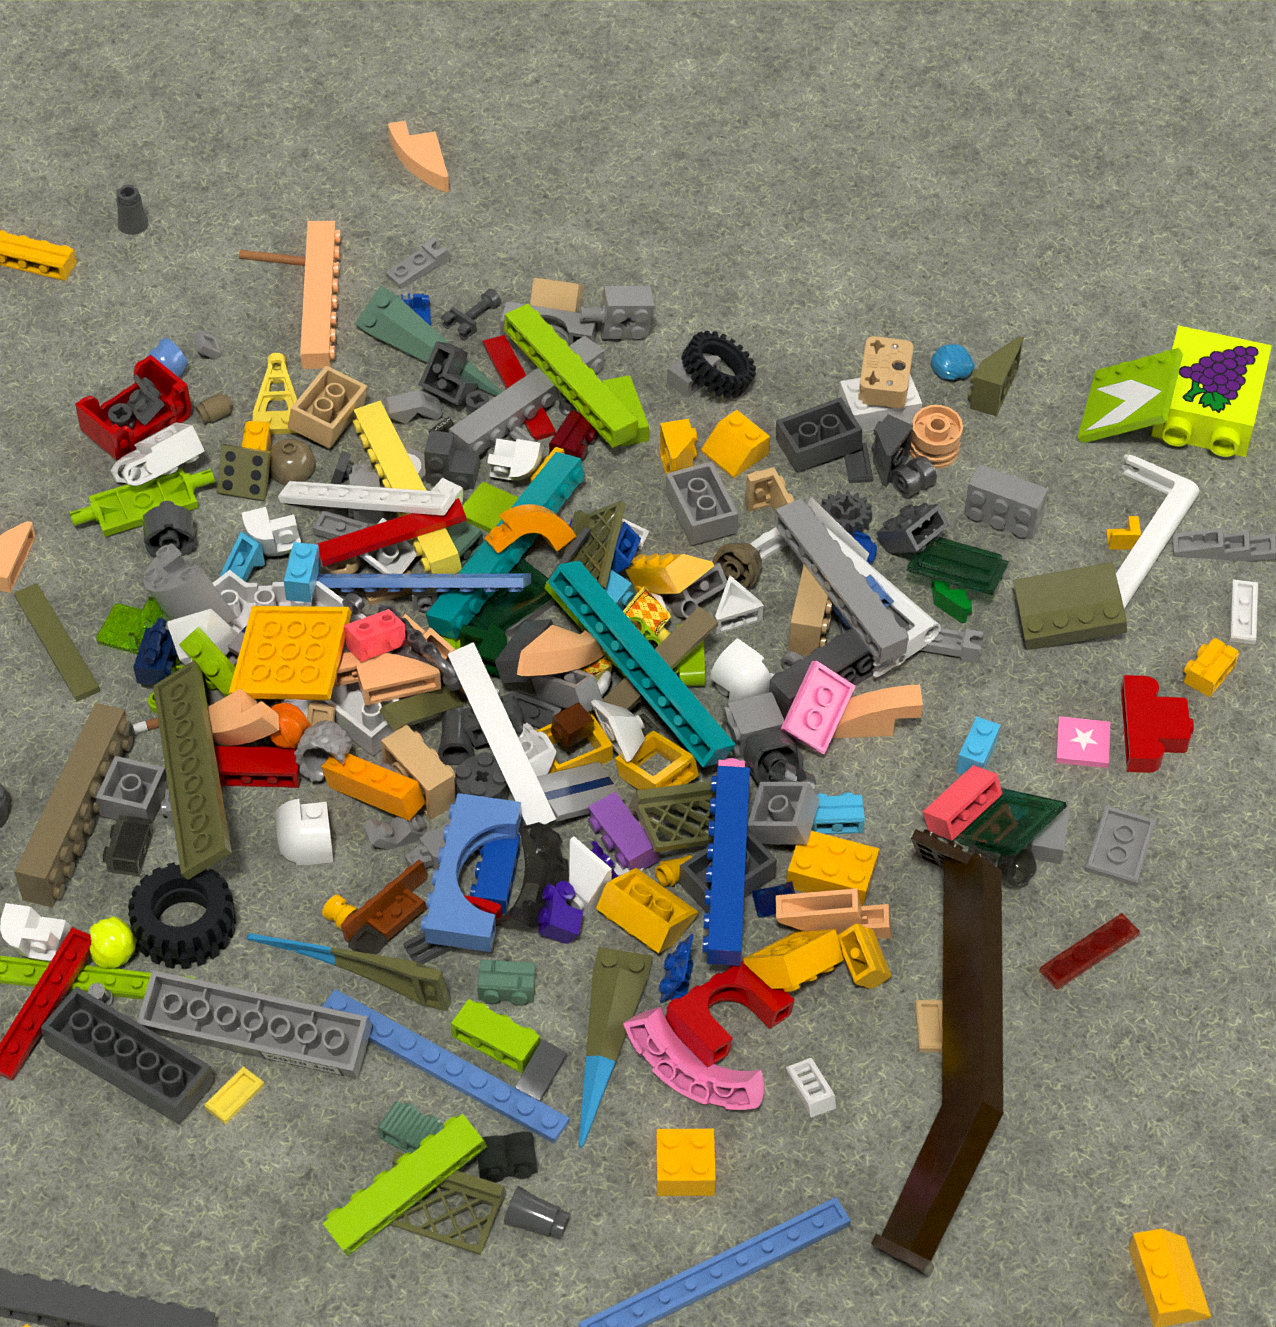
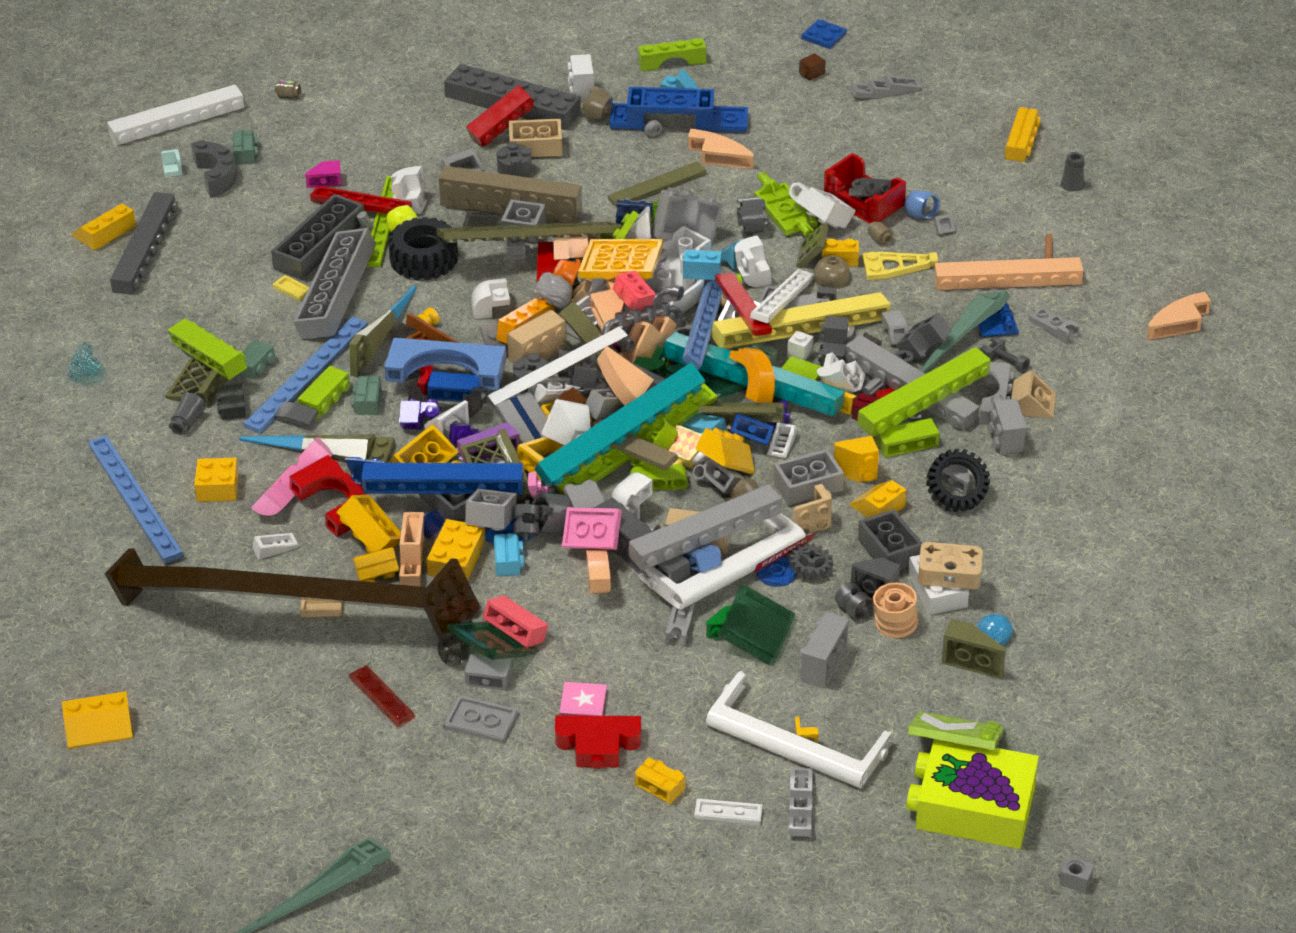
camera: 90 degrees right, 10 degrees down
(327, 406) = (882, 275): tan brick -> none
(577, 543) = (750, 403): dark grey piece -> none
(737, 607) = (701, 493): white slope -> none
(912, 528) = (788, 592): dark grey brick -> none
(978, 745) = (569, 632): medium azure brick -> none
(1070, 606) = (710, 682): olive slope -> none

